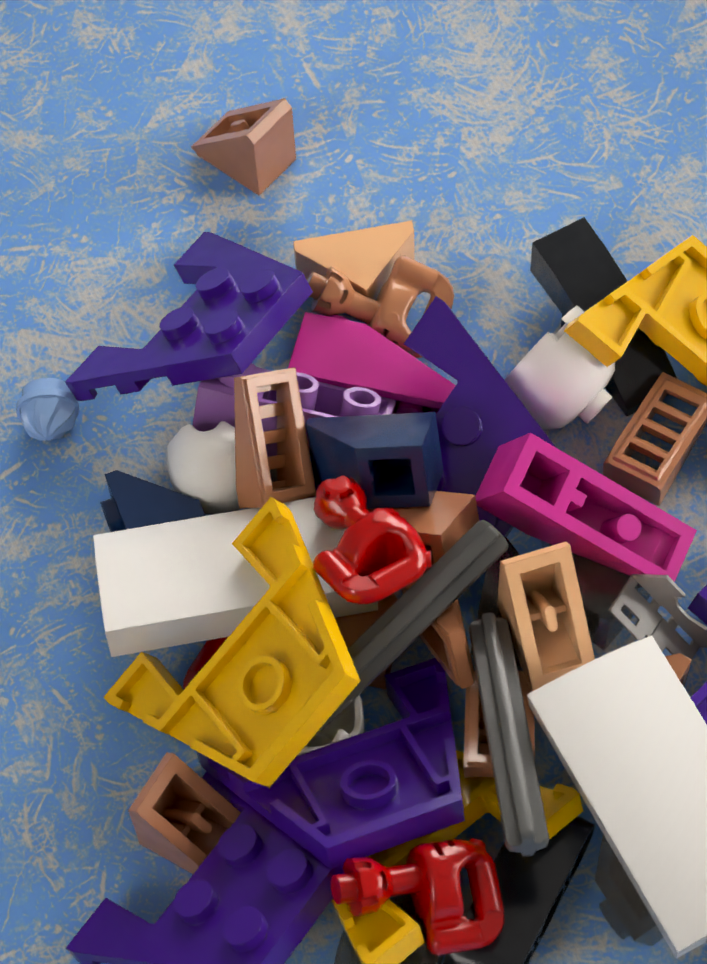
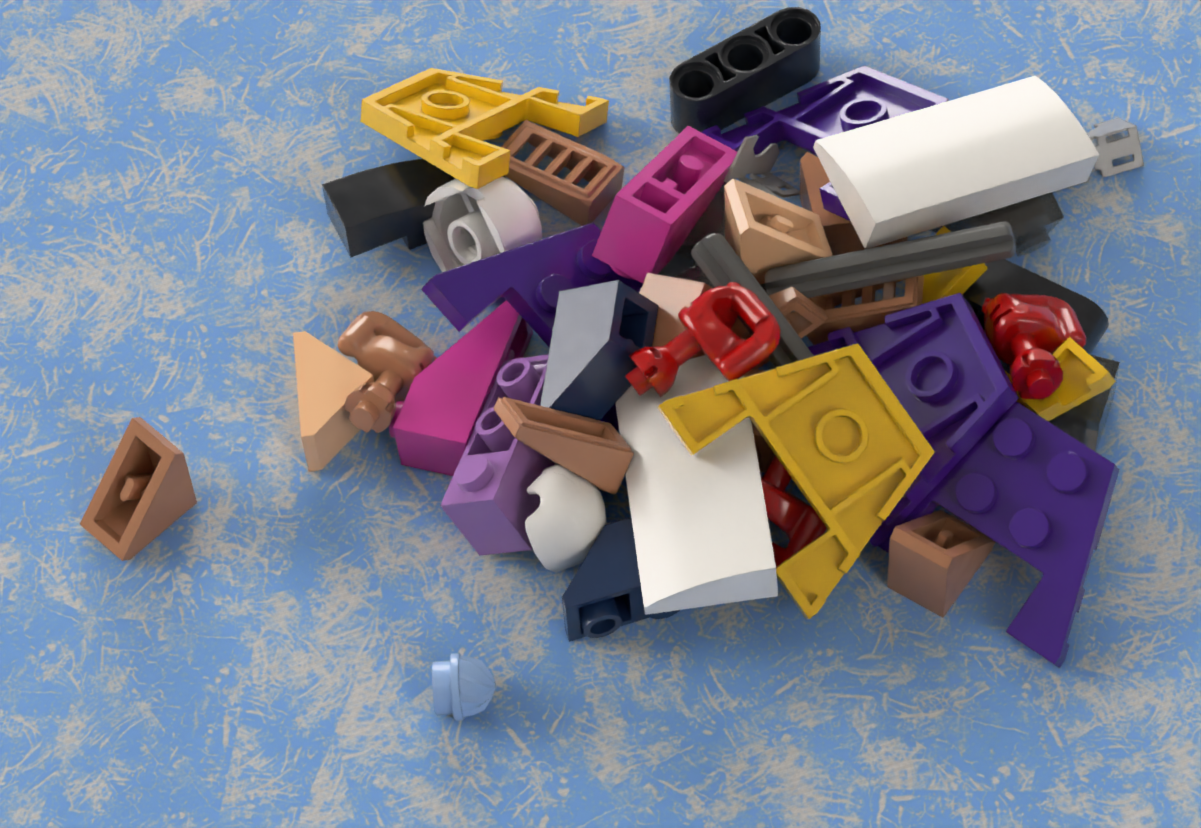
camera: 85 degrees left, 5 degrees down
(215, 333) = (405, 484): dark purple wing -> none

